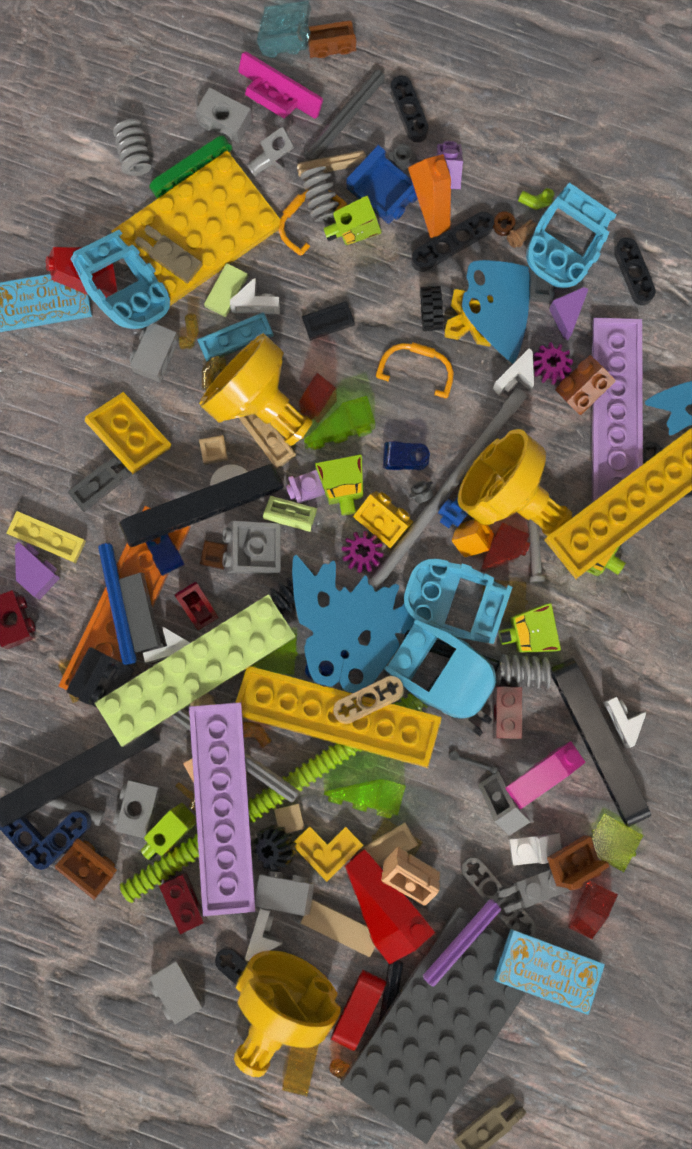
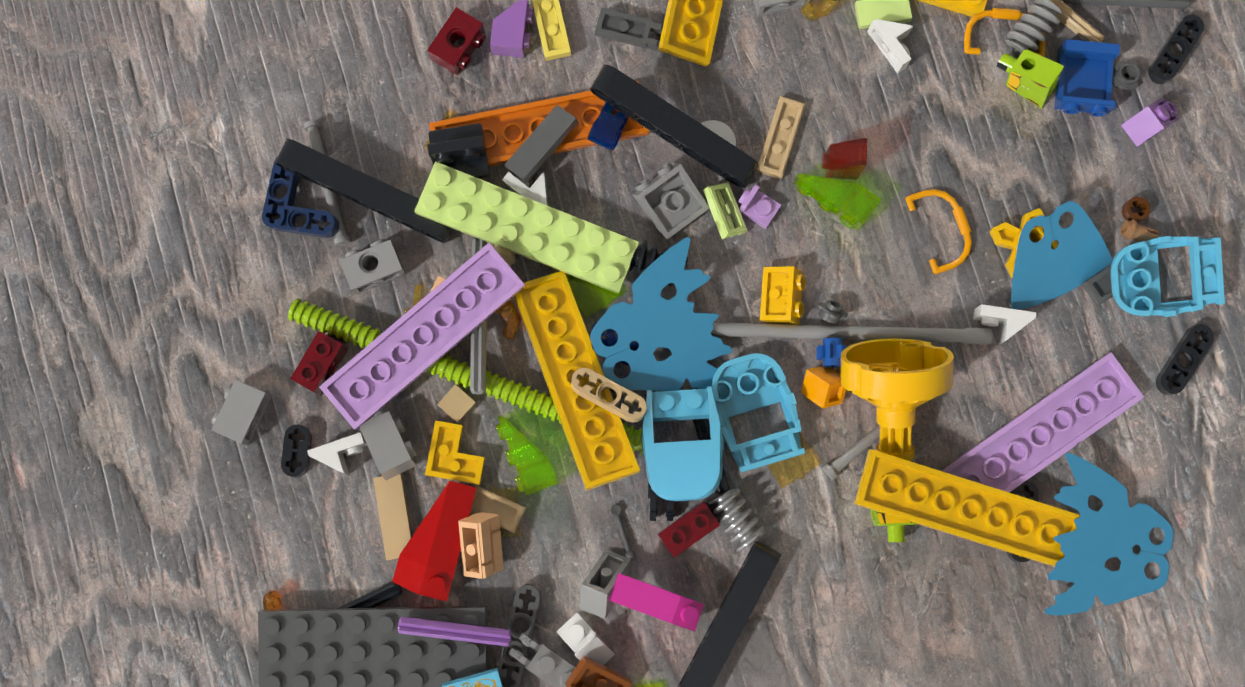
camera: 55 degrees right, 0 degrees up
(86, 868) = (291, 260): dark orange bracket -> none
(116, 602) = (526, 128): blue axle -> none
(168, 831) = (371, 306): lime torso -> none
(196, 605) = (584, 188): dark red slope -> none
(210, 368) = (798, 49): clear yellow arm -> none
(213, 450) = (732, 104): tan tile -> none
(213, 554) = (639, 170): reddish brown tile -> none
(234, 336) = (846, 50): medium azure tile -> none
(251, 387) = (810, 94): yellow piece -> none
(274, 847) = (422, 407): black gear -> none
(286, 1005) = (291, 511): yellow piece -> none
(300, 1070) = (264, 561): clear yellow tile -> none
(328, 320) = (924, 119): black tile -> none
(342, 481) = (788, 235): lime torso -> none
(358, 1010) = (333, 582): red beam -> none
(365, 544) = (748, 298): magenta gear -> none
(403, 456) = (850, 271): clear blue piece -> none
(431, 308) = (1005, 199): black tyre -> none
(433, 190) = (1114, 123): orange slope -> none
(455, 245) = (1081, 180): black beam -> none
(506, 547) = (836, 422): clear red slope -> none
(532, 630) = (779, 500): lime torso -> none
(539, 201) = (1181, 225): lime arm -> none
(554, 354) = (1047, 350): magenta gear -> none
(566, 311) = (1098, 323): medium lavender slope -> none
(585, 385) = (1041, 388): dark orange bracket -> none
(626, 728) = (753, 649): white slope -> none

